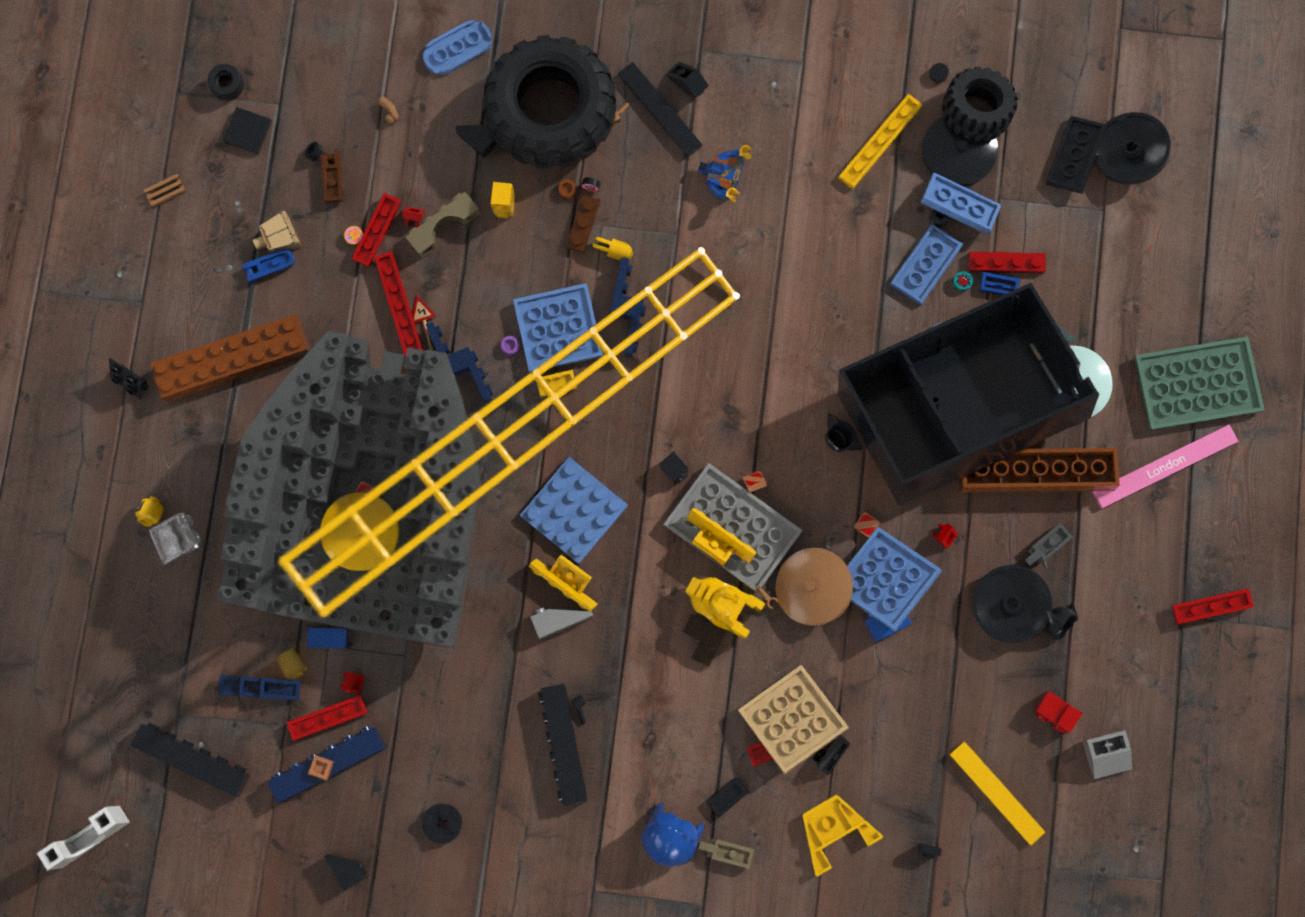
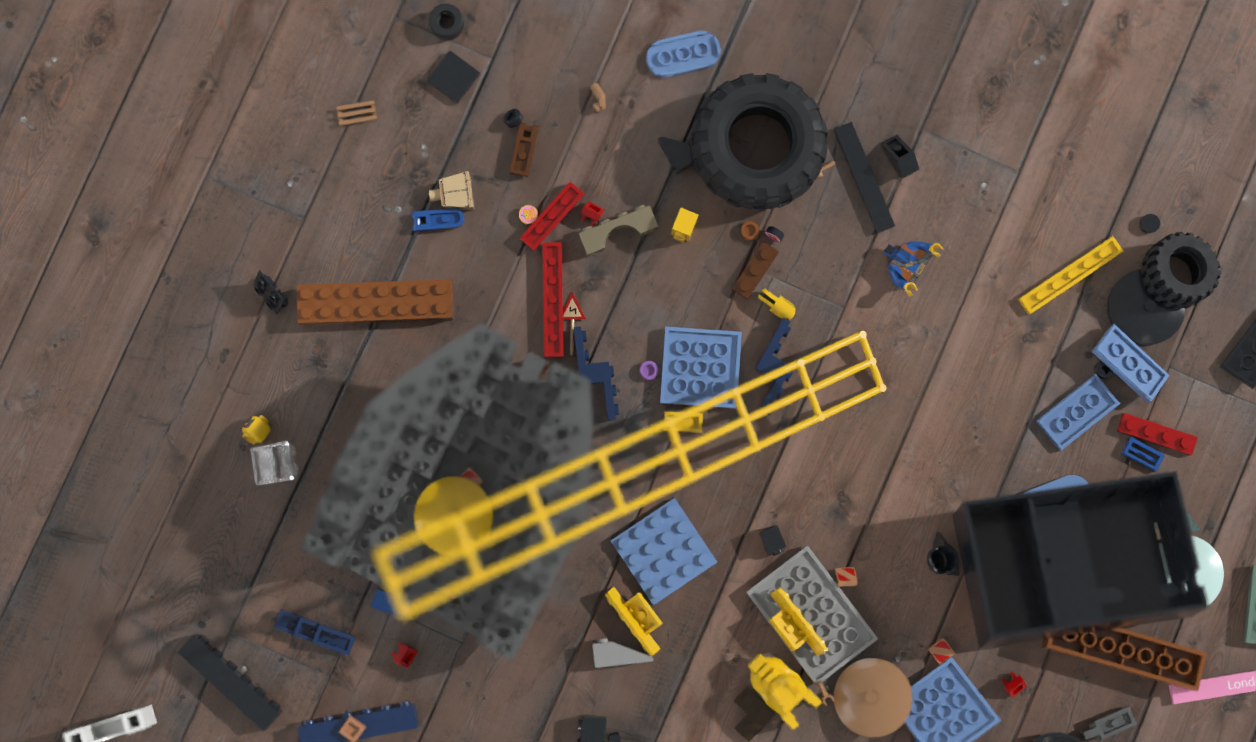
camera: 10 degrees right, 5 degrees up
(291, 664) = (351, 619): clear yellow brick -> none
(327, 717) = (371, 681): red plate -> none
(962, 281) = (1108, 440): tile -> none

